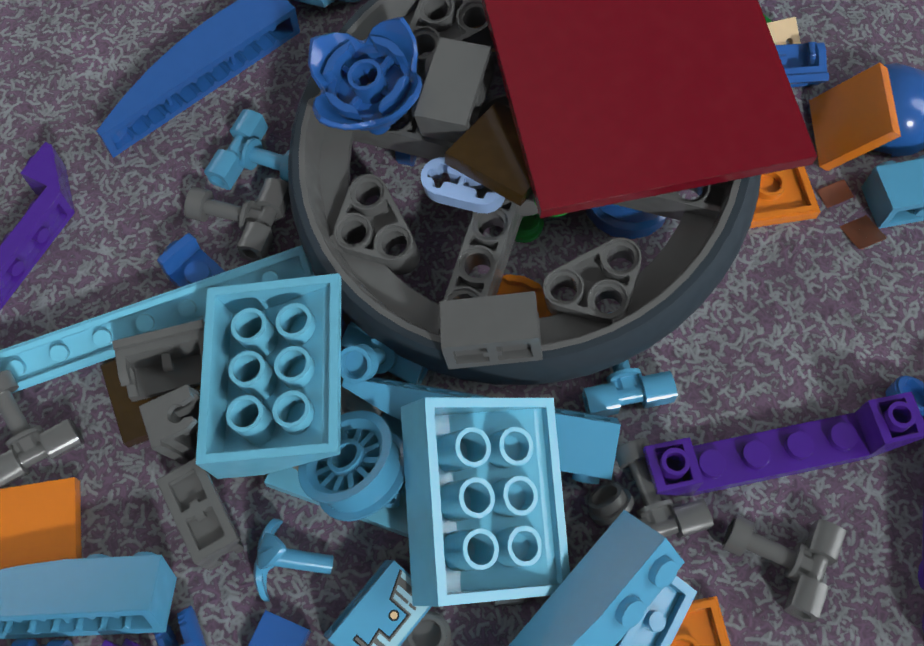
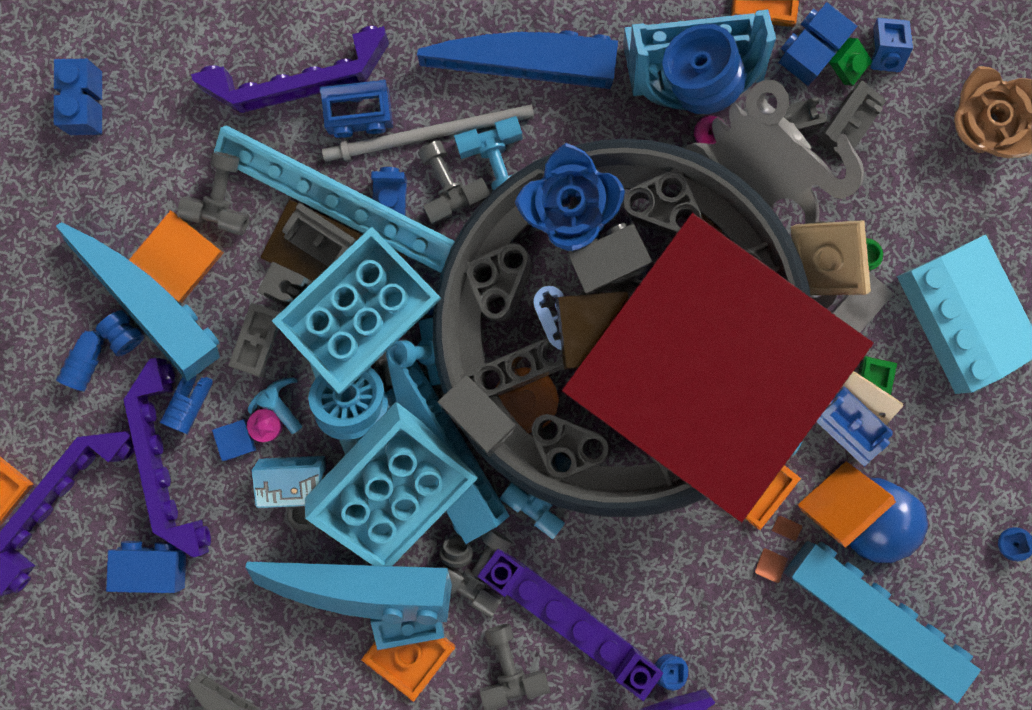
camera: 45 degrees right, 20 degrees up
(99, 243) = (356, 92): none -> blue window
(115, 276) = (346, 150): none -> light grey bar
(293, 594) = (264, 425): none -> dark pink tile

